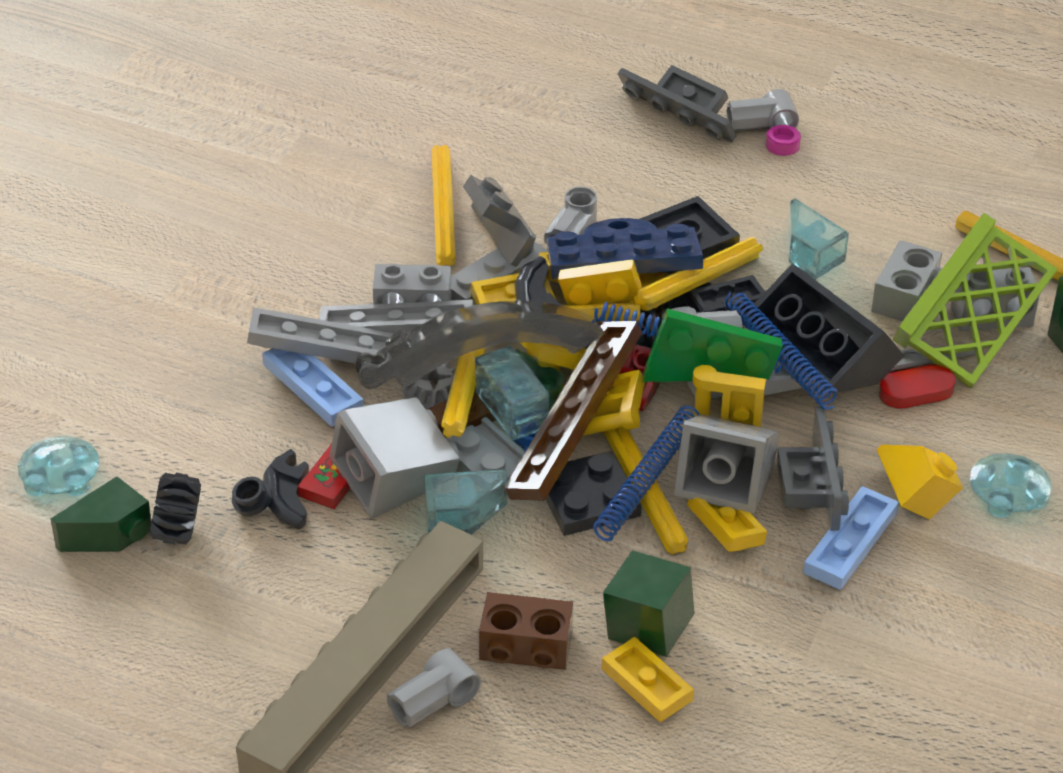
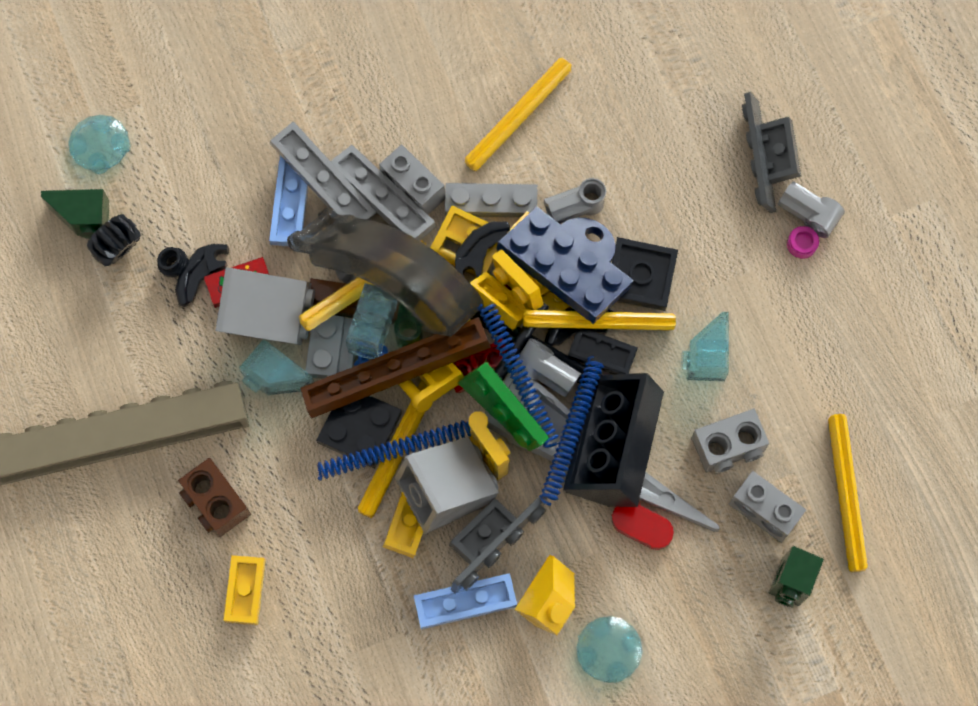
camera: 45 degrees right, 30 degrees up
(442, 682) = (137, 491): light grey piece -> none
(500, 218) = (518, 161): dark grey bracket -> none
(649, 602) = (289, 545): dark green head -> none
(949, 280) = (730, 477): lime fence -> none

